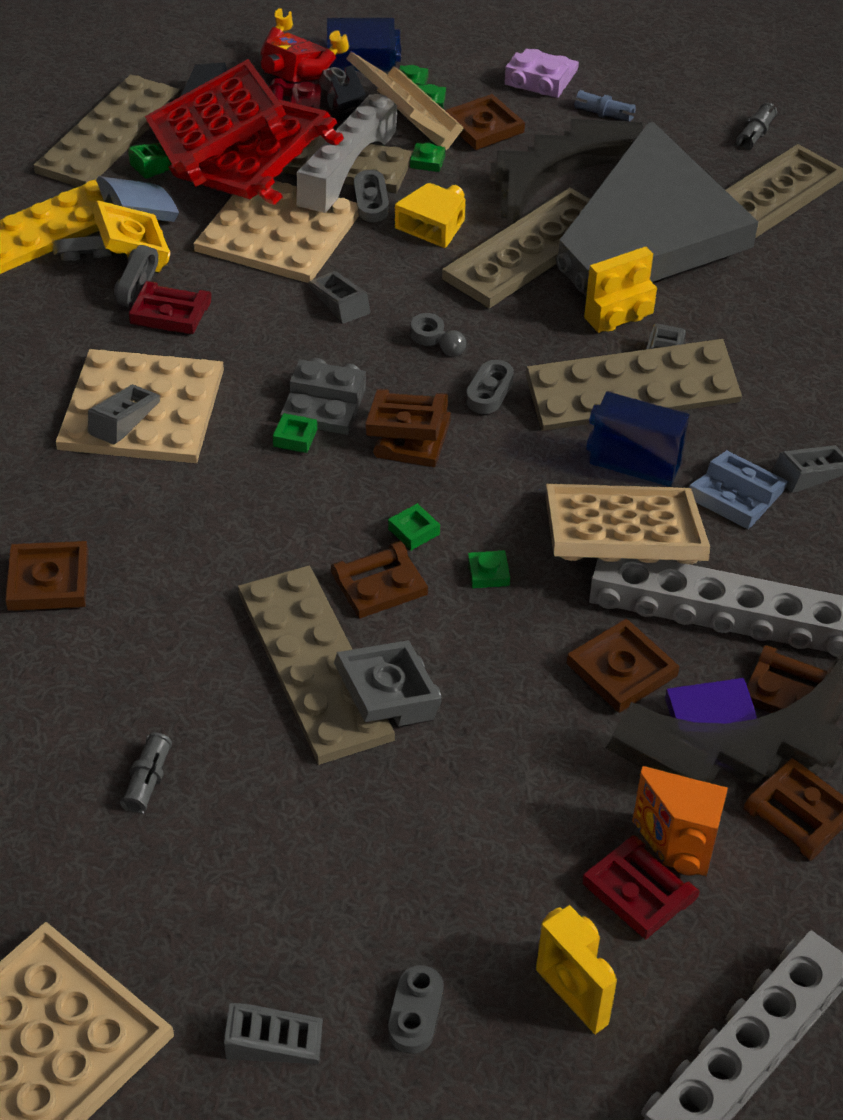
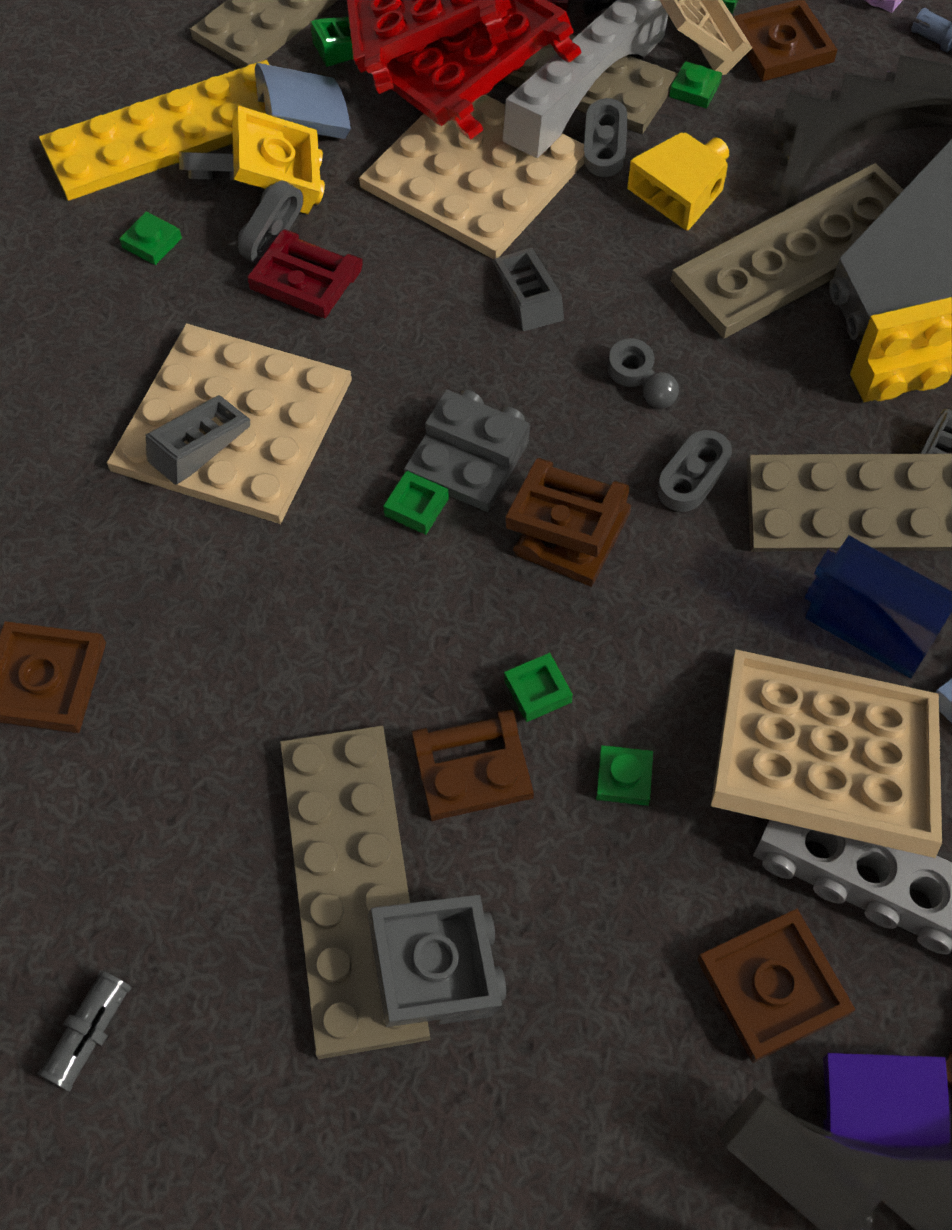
camera: 15 degrees right, 15 degrees up
(43, 301) = (150, 238): none -> green plate

